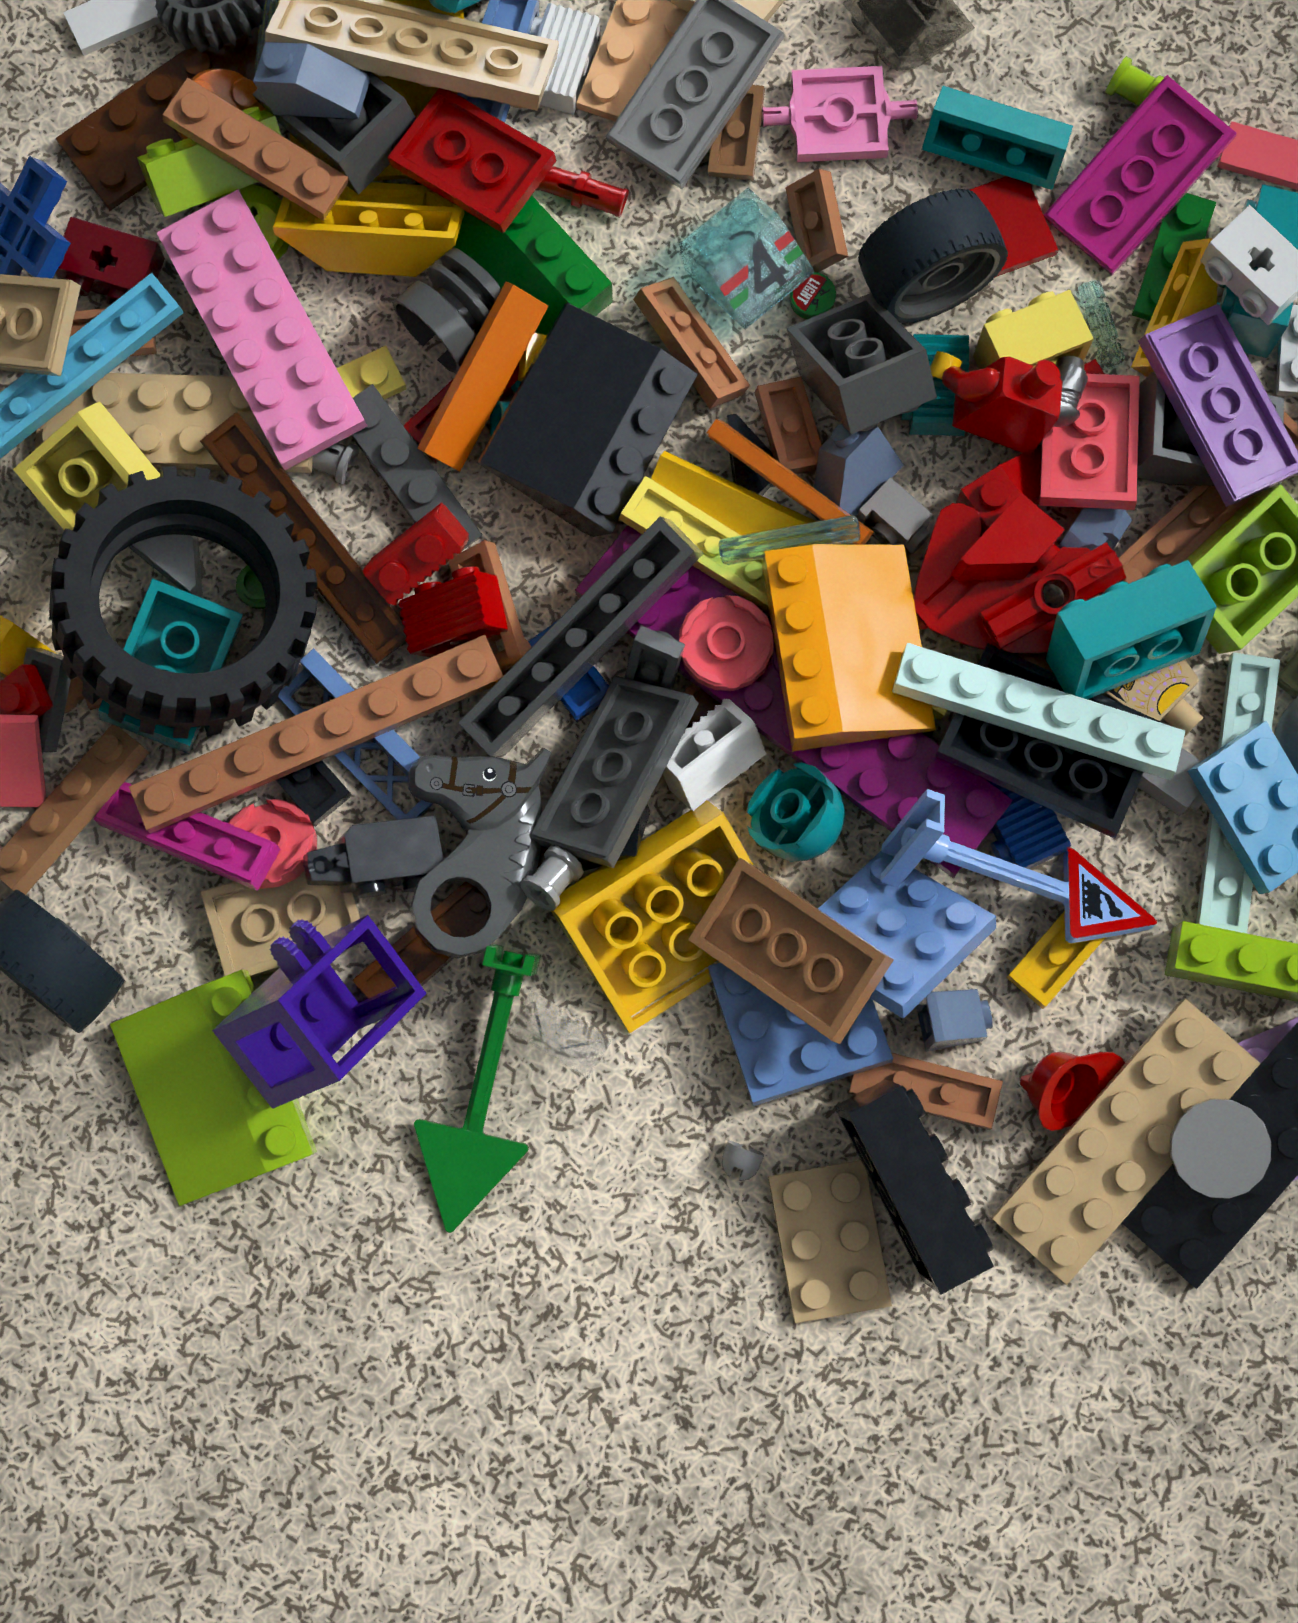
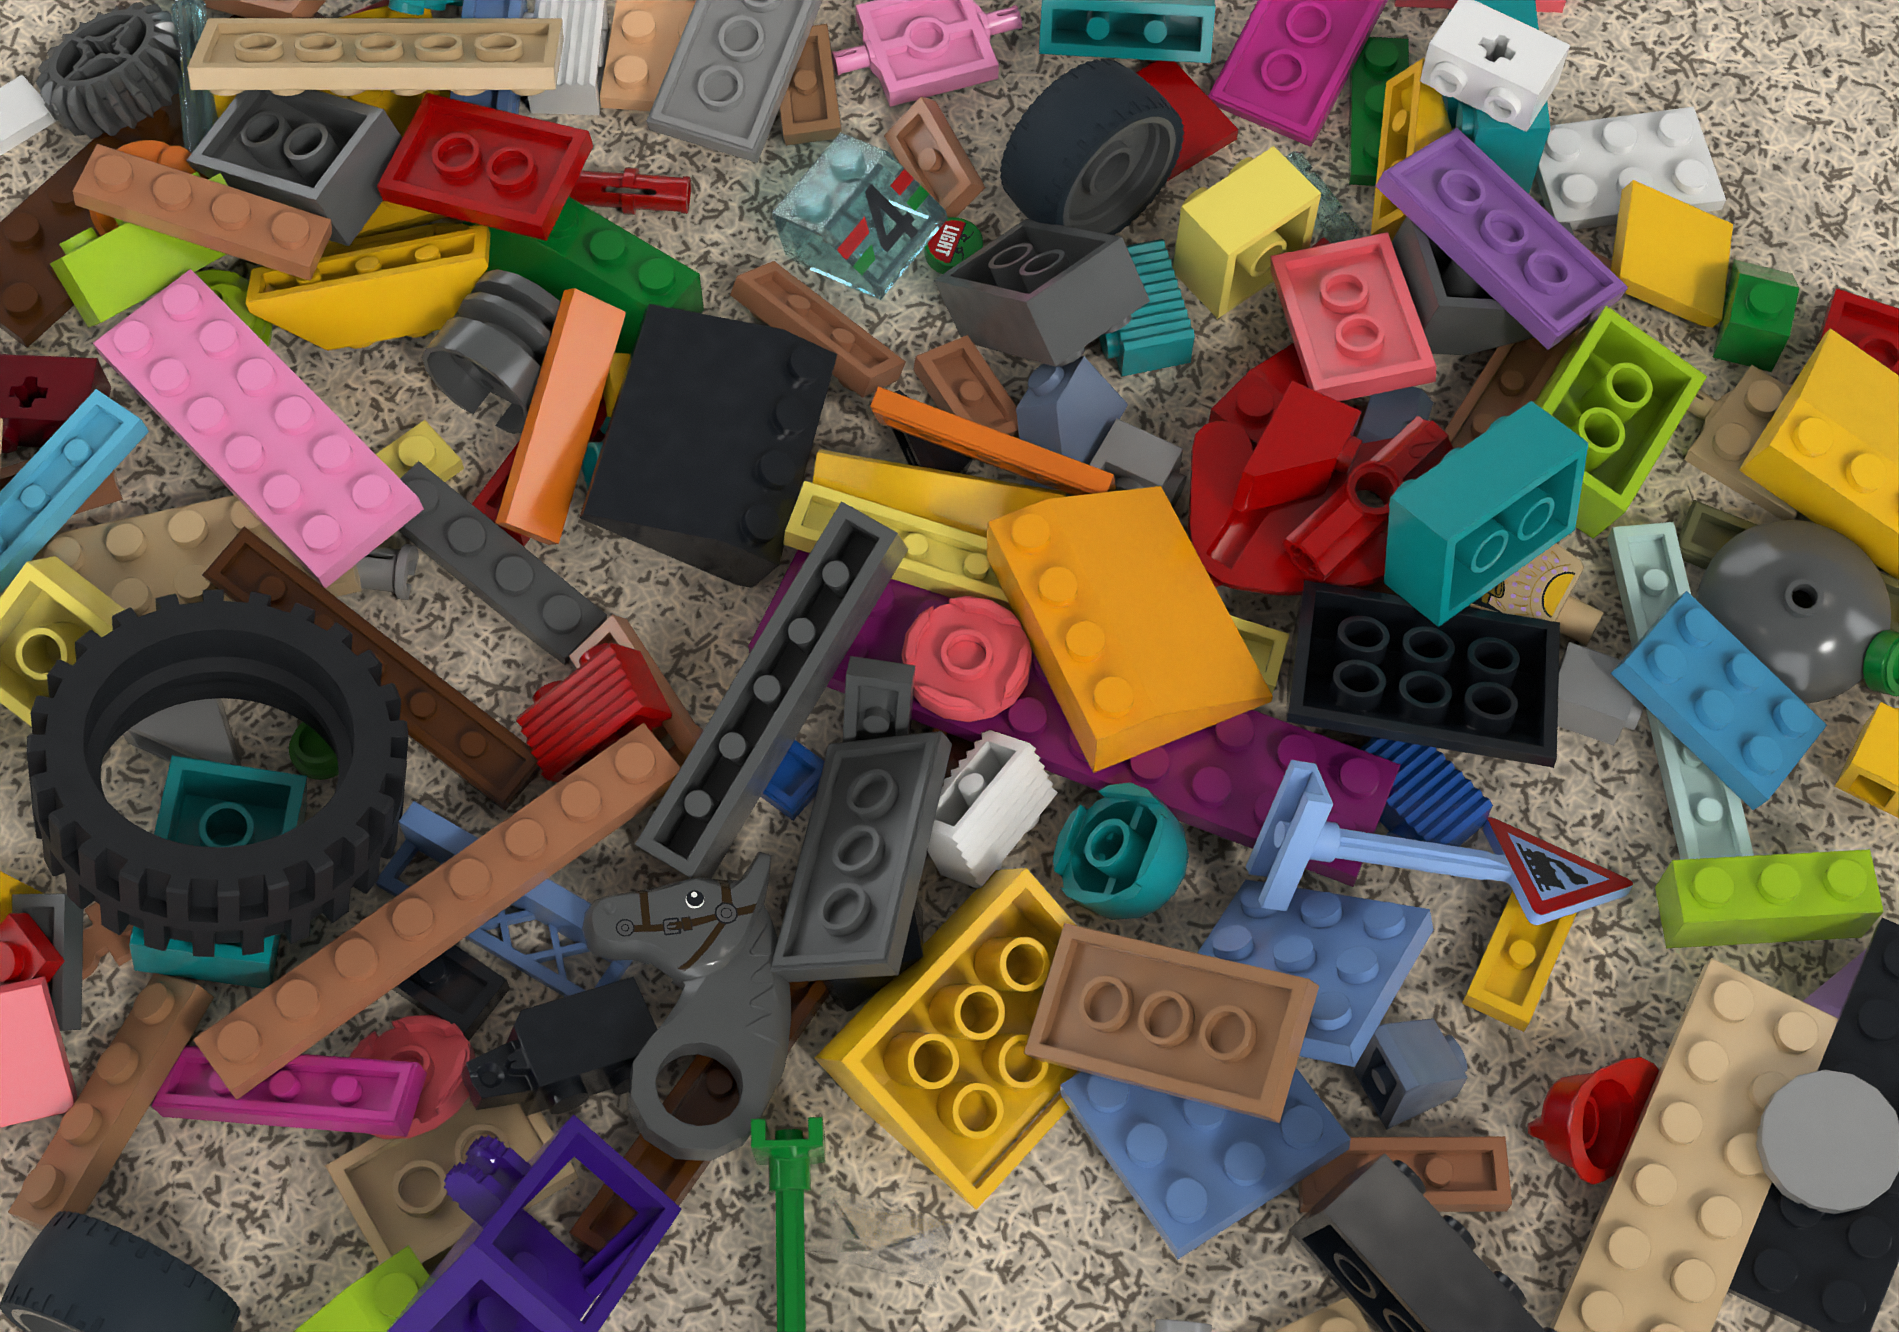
camera: 15 degrees left, 15 degrees down
(309, 82) = (255, 118): sand blue slope -> none
(416, 554) = (525, 650): red brick -> none
(552, 878) = (817, 1012): light grey bush -> none
(752, 546) = (971, 526): clear light blue axle -> none
(1013, 399) = (1244, 283): red torso -> none
(1039, 711) = (1400, 637): light aqua plate -> none

